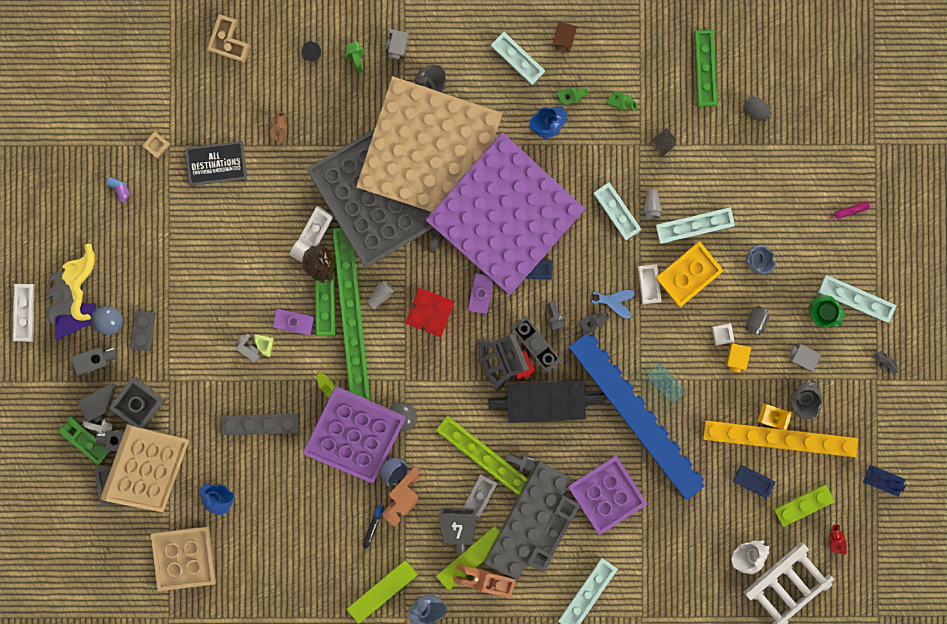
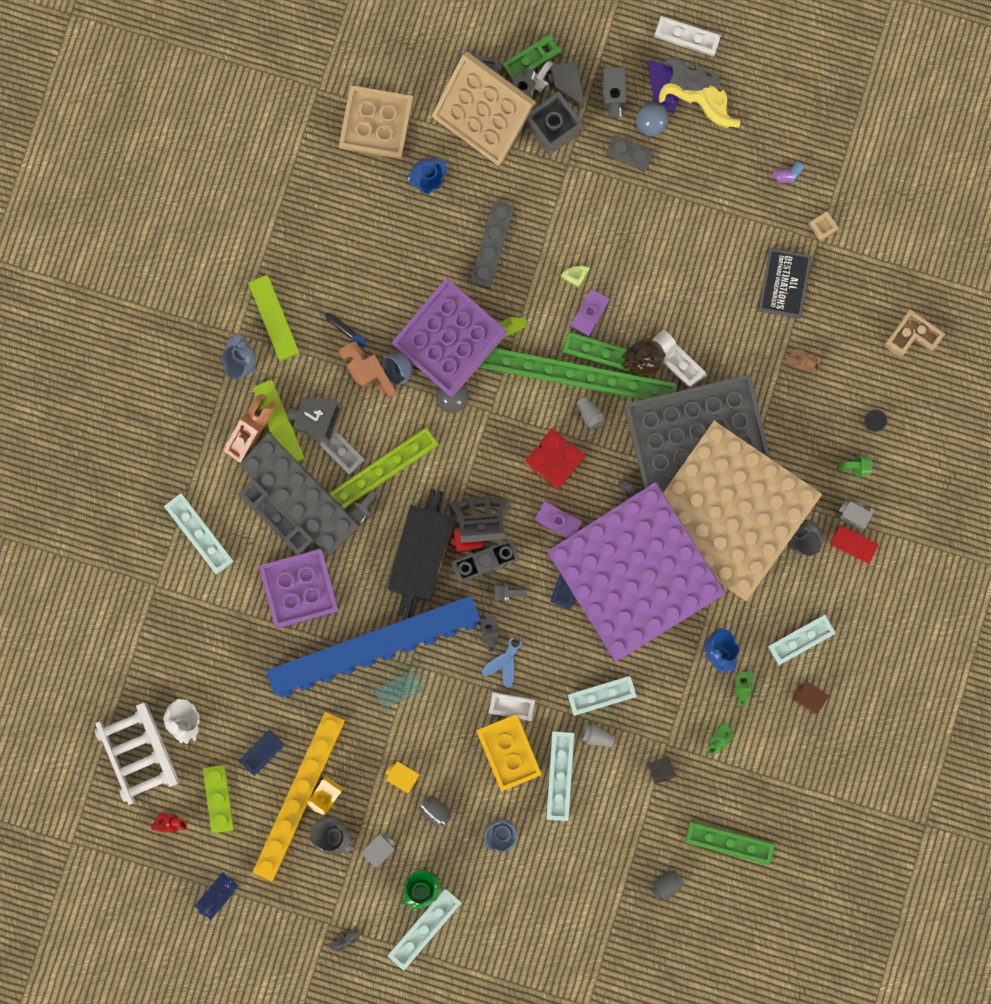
camera: 110 degrees right, 5 degrees down
(250, 351) = (572, 256): light grey bracket -> none
(422, 38) = (854, 544): none -> red tile
(722, 334) = (432, 769): white tile -> none
(852, 210) = (523, 956): dark pink piece -> none

